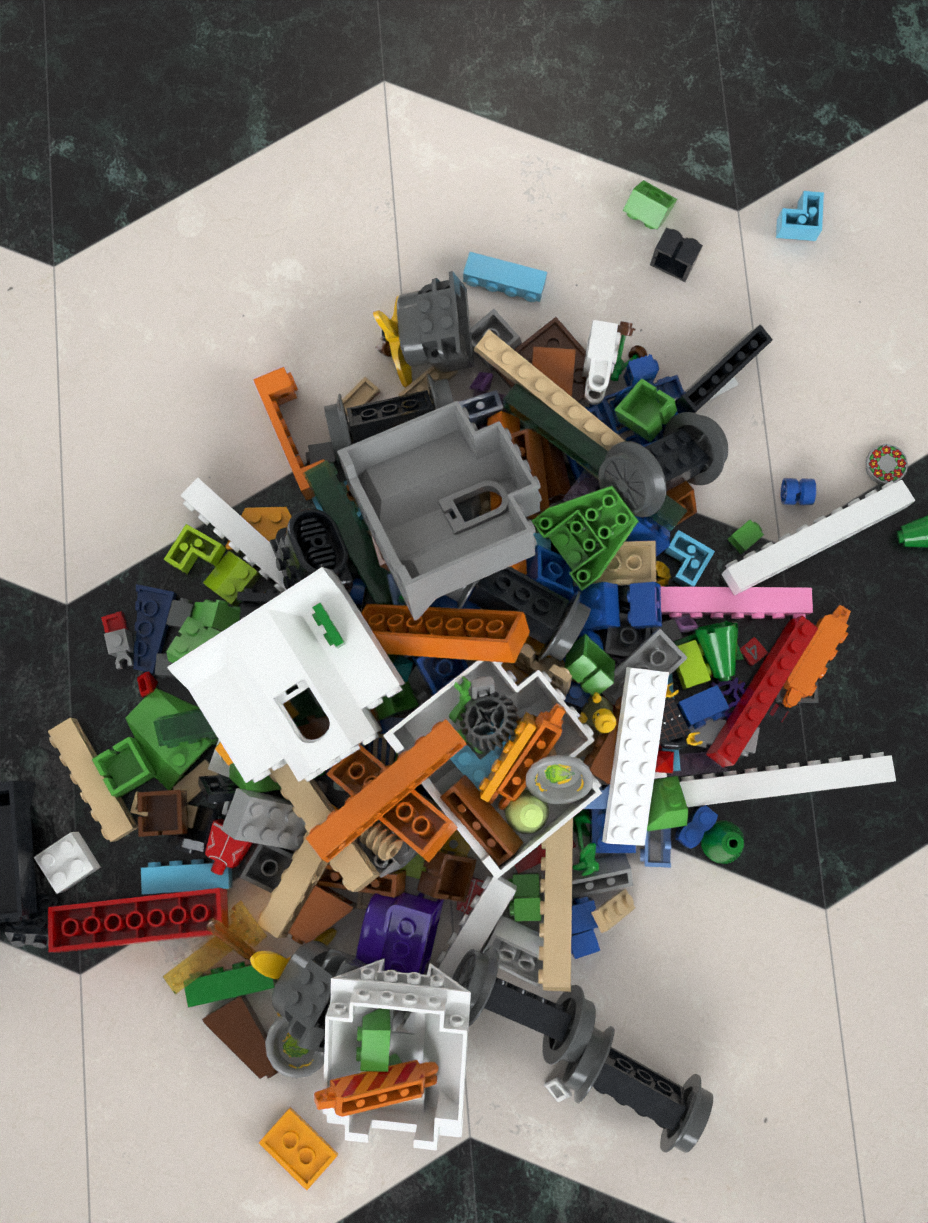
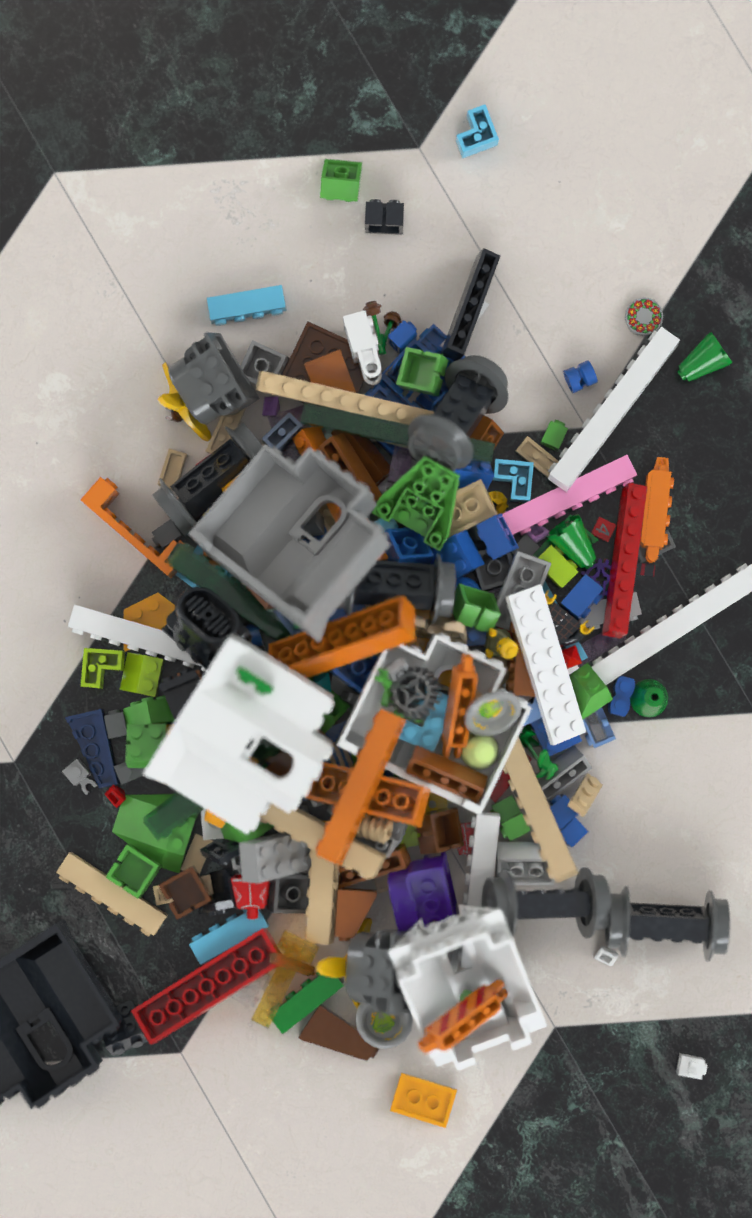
camera: 25 degrees left, 5 degrees up
(67, 862) = (126, 969): white piece -> none
(114, 622) = (62, 758): red tile -> none
(374, 1041) = (445, 984): bright green slope -> none
(508, 756) = (444, 711): light orange wing -> none
(717, 541) = (534, 453): none -> tan plate

